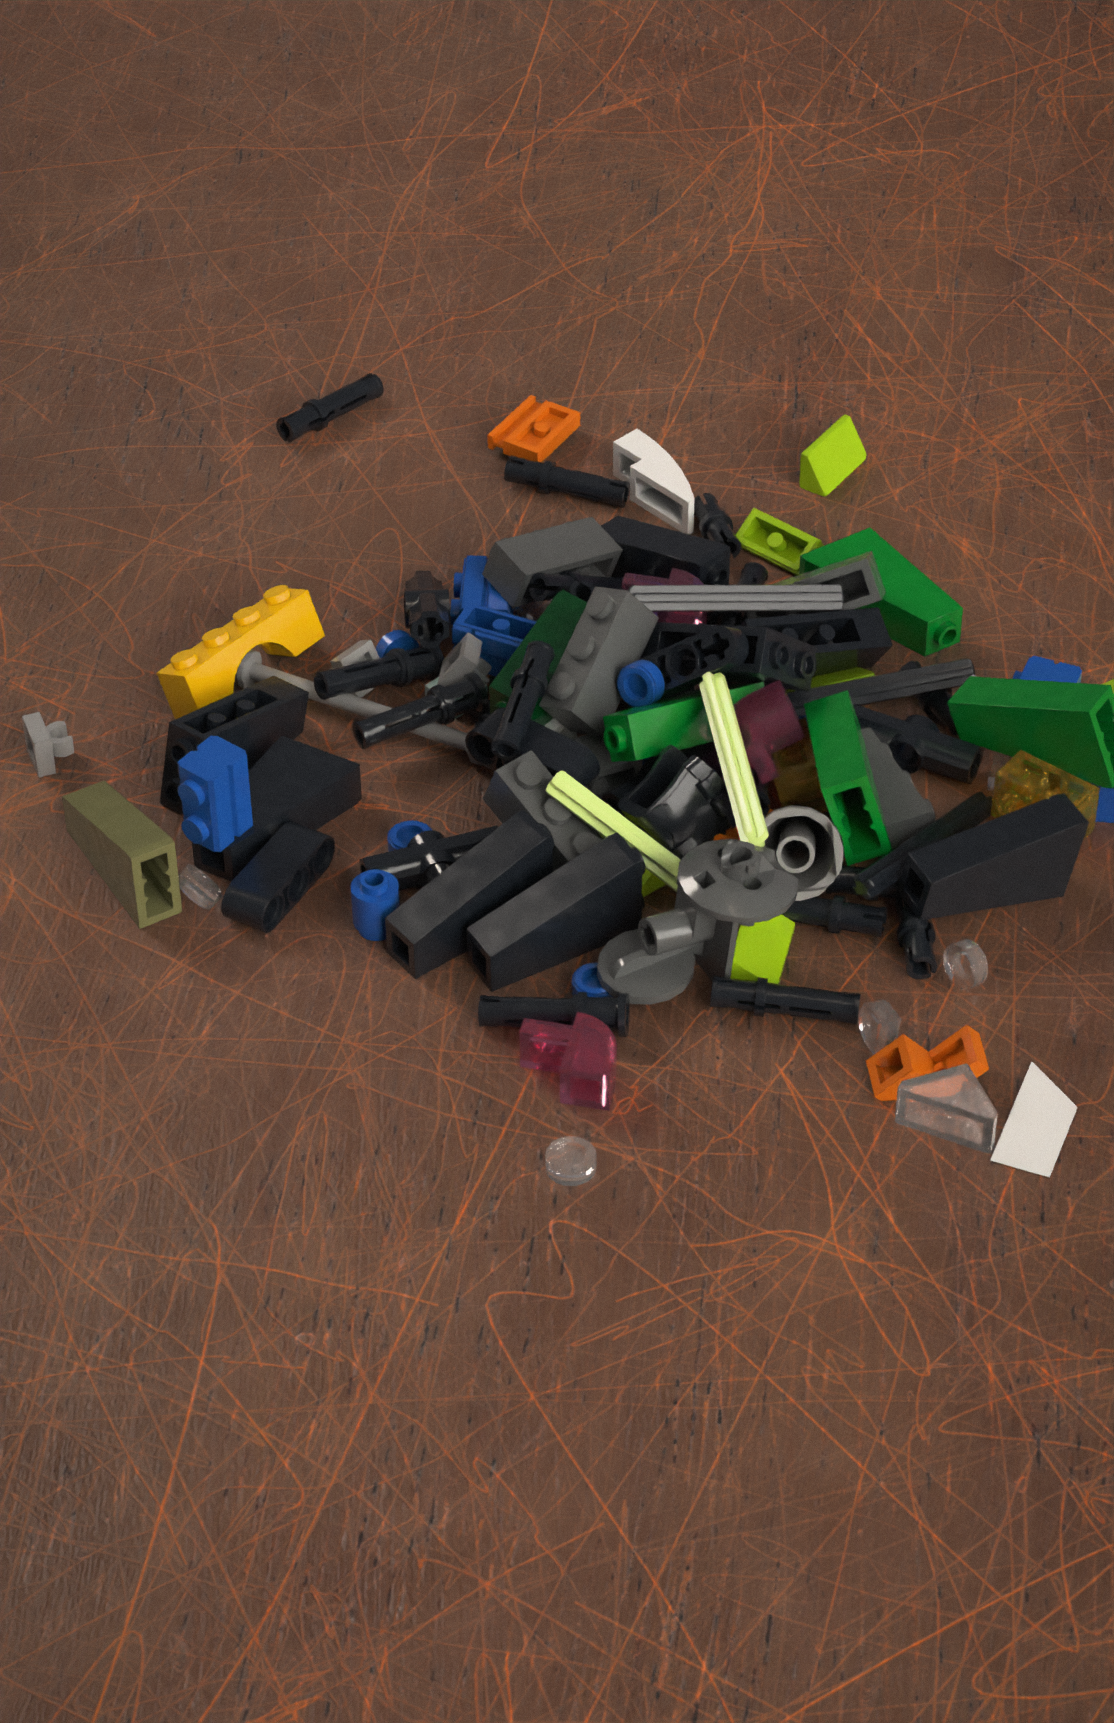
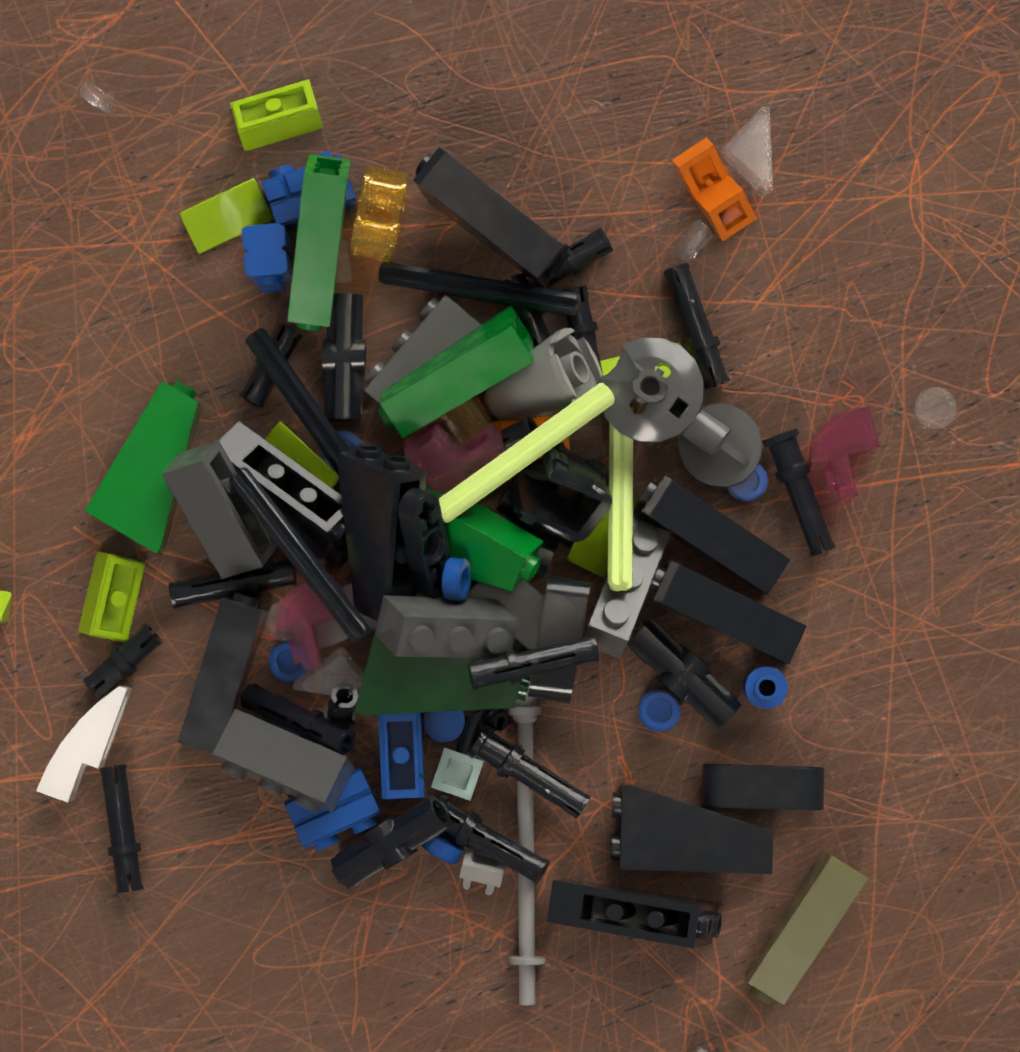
camera: 115 degrees left, 45 degrees up
(199, 887) = (807, 842): clear tile -> none
(215, 793) = (763, 857): blue brick -> none
(279, 623) = (566, 984): yellow arch -> none
(463, 660) = (452, 771): light grey tile -> none
(534, 429) = (58, 899): orange plate -> none
(965, 964) = (590, 205): clear tile -> none
(1035, 1125) = (720, 92): white sticker -> none

